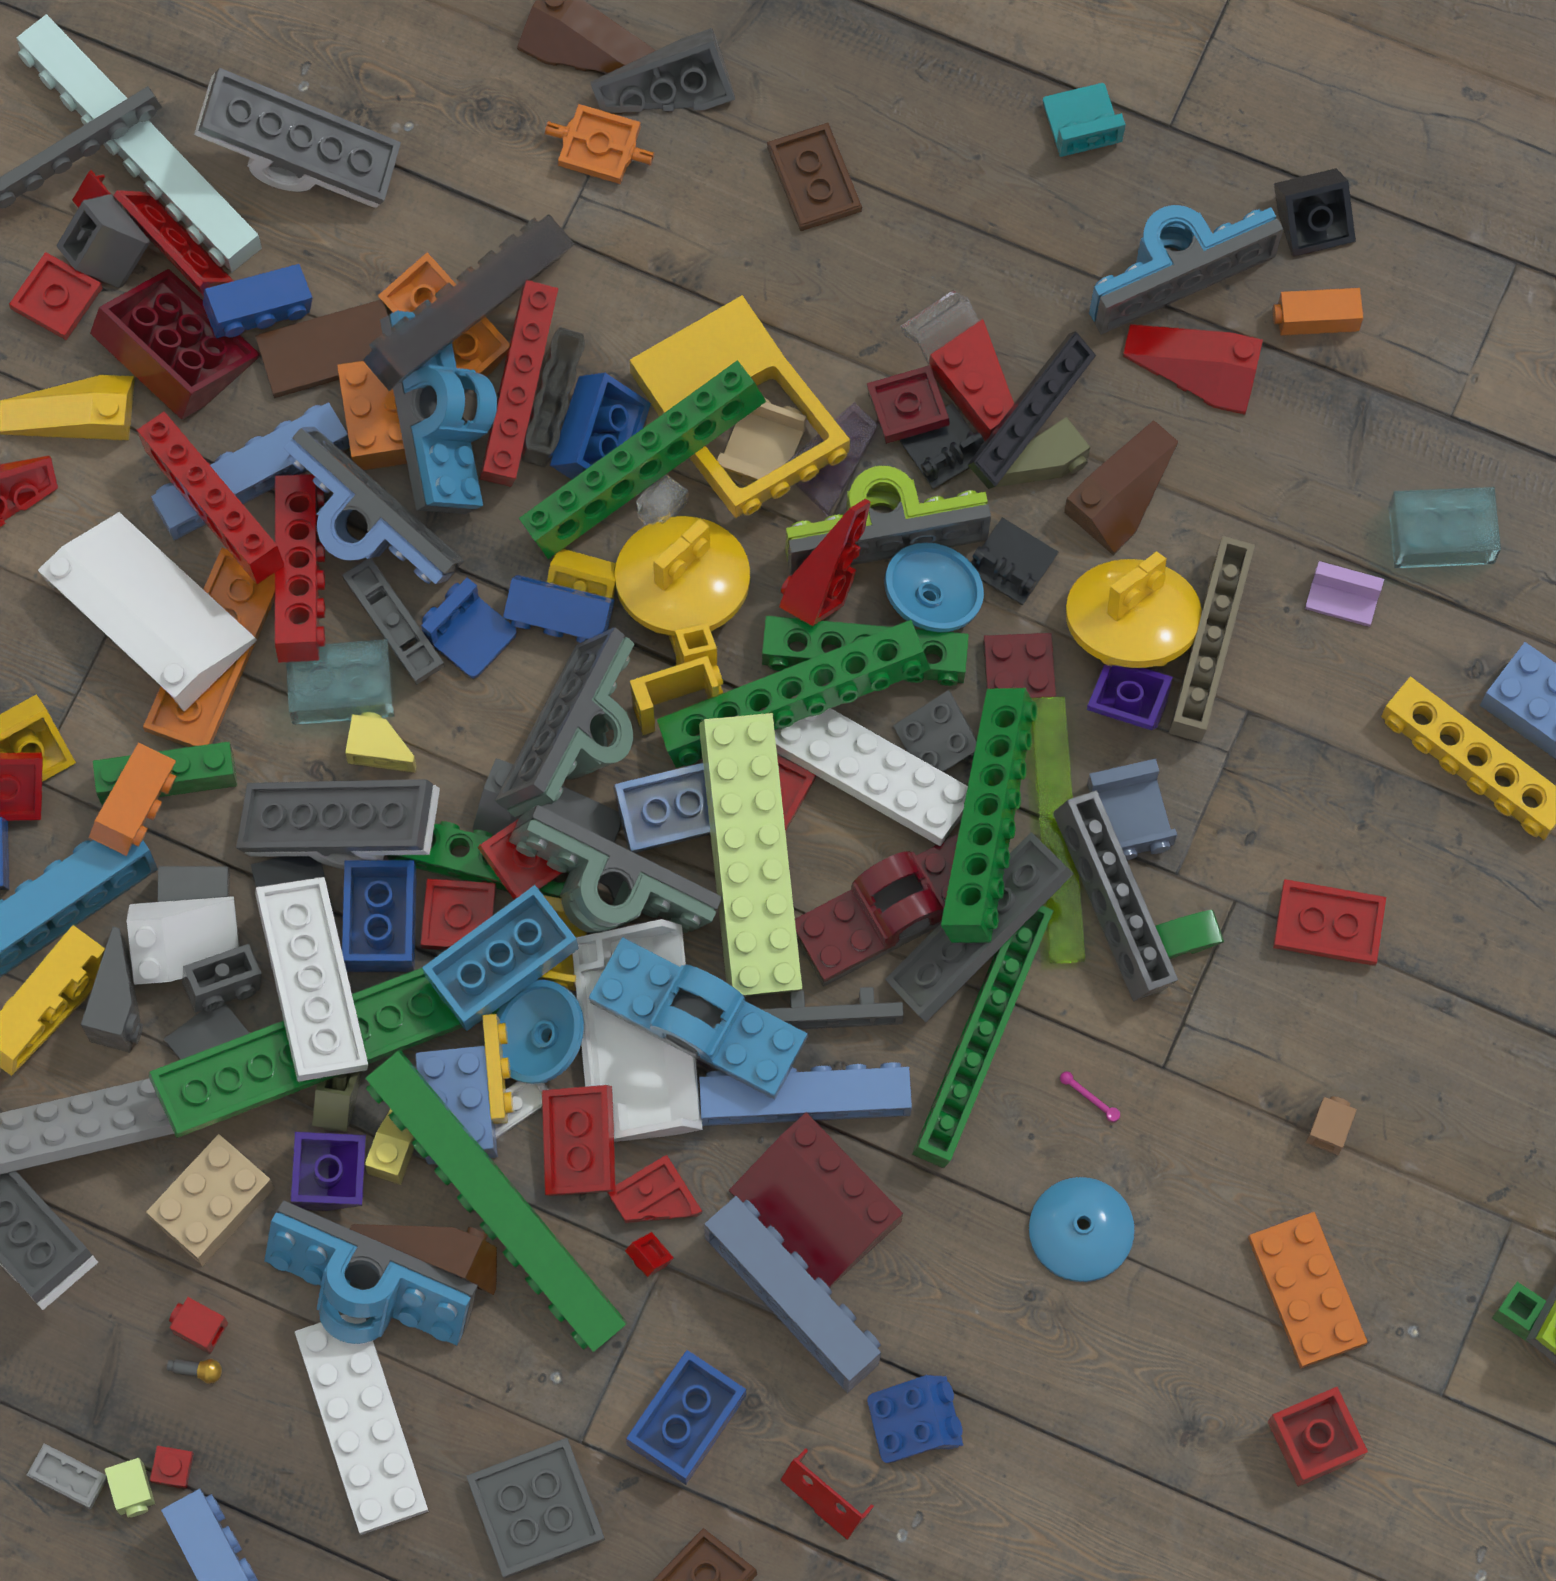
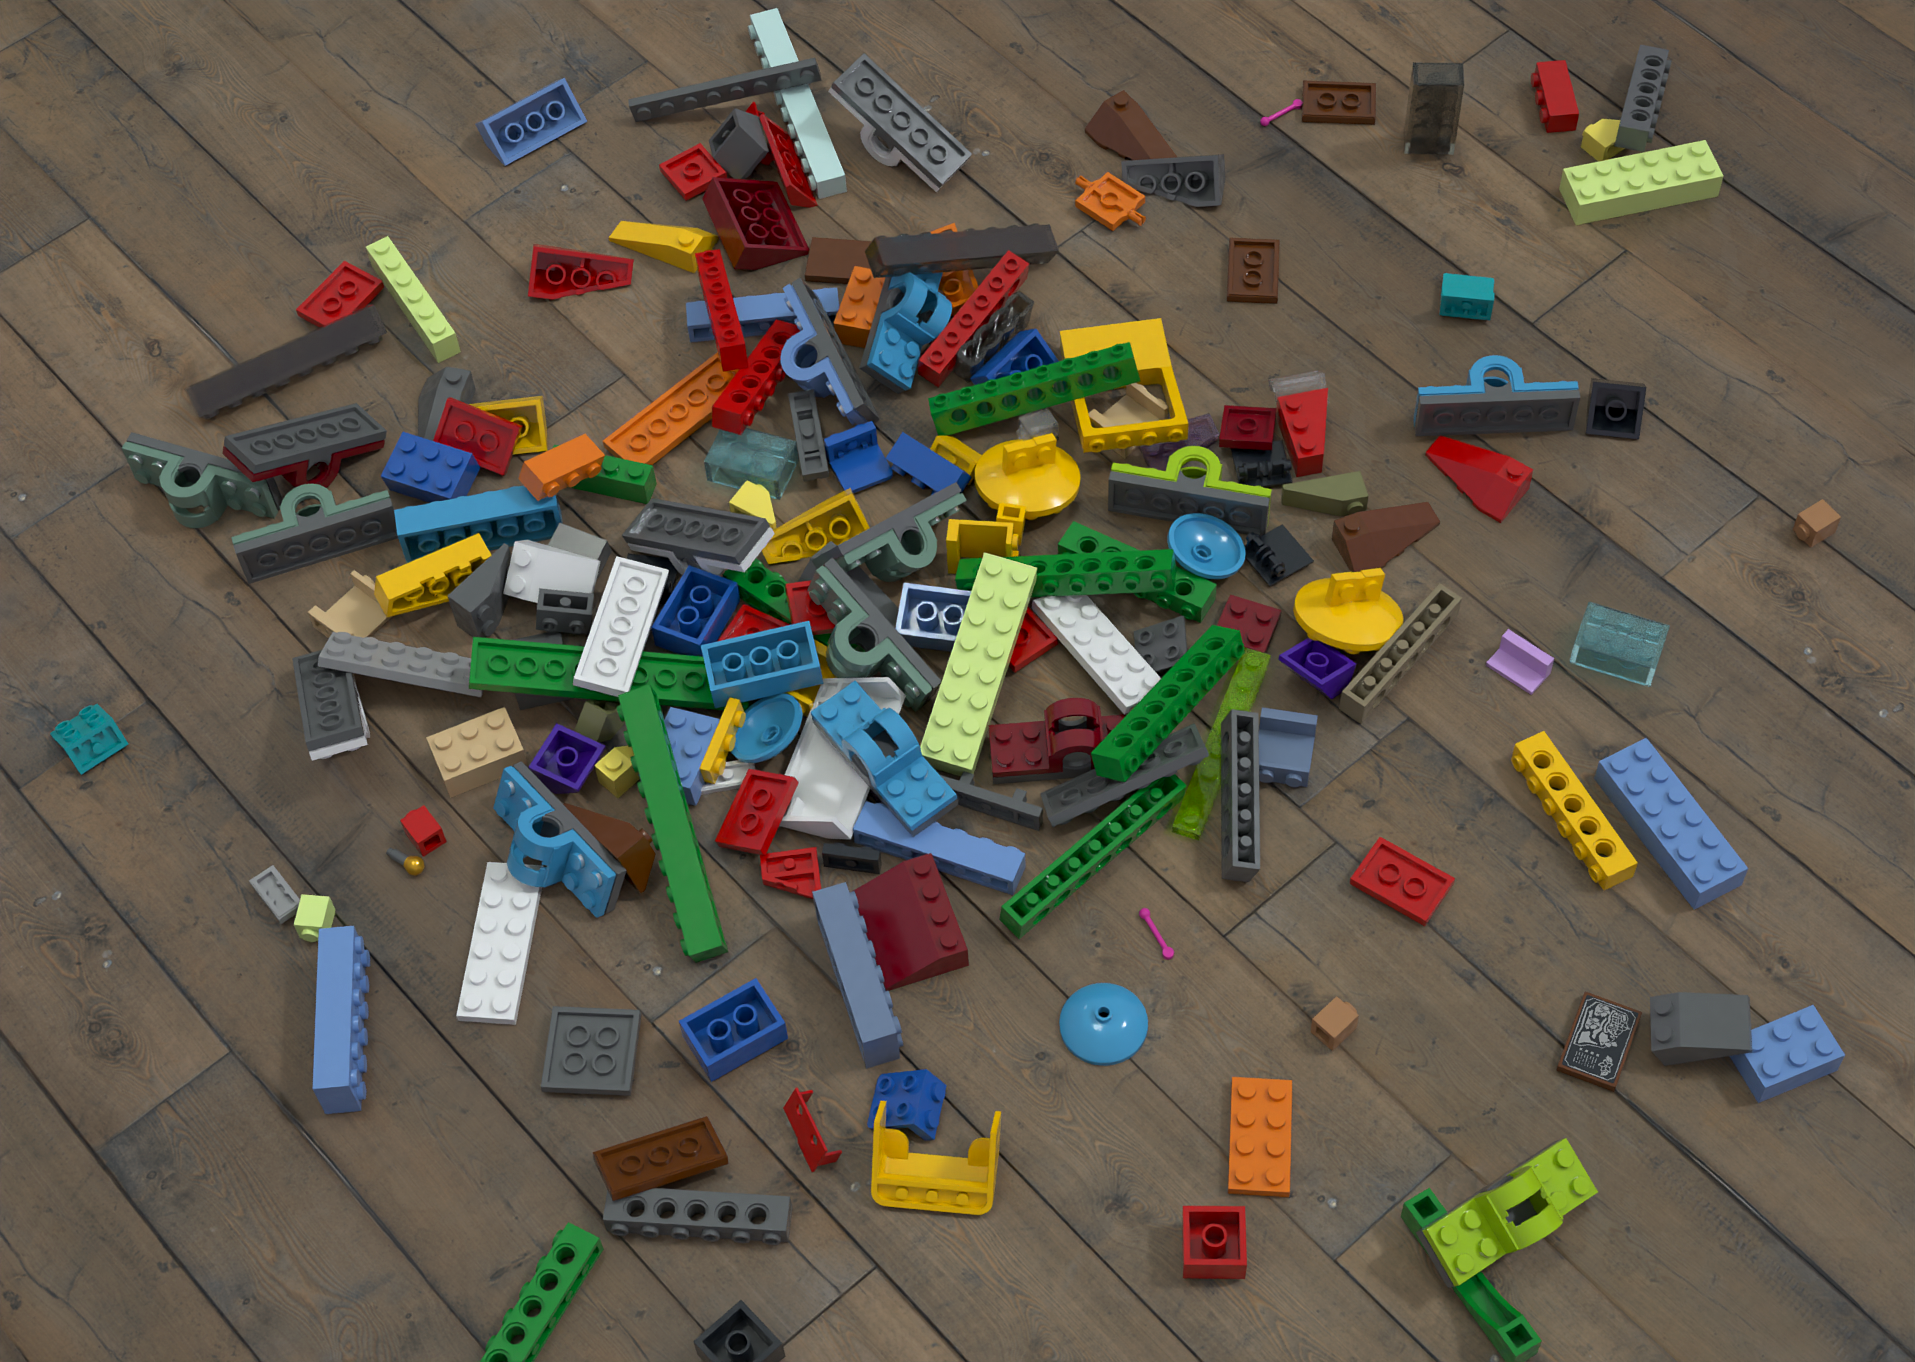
camera: 30 degrees right, 15 degrees down
(148, 607) = (646, 369): white slope -> none
(171, 1467) = (352, 915): red plate -> none
(257, 301) = (823, 214): blue brick -> none
(472, 736) = (806, 534): none -> yellow wedge
(649, 1254) = (768, 910): red plate -> none
(726, 1146) = (851, 858): none -> black plate
(826, 575) = (1126, 505): red wedge -> none
(990, 1490) = (933, 1180): none -> yellow windscreen
(1031, 410) = (1335, 457): black tile -> none
(1190, 933) = (1286, 847): green slope -> none
(1319, 311) = (1587, 471): orange brick -> none

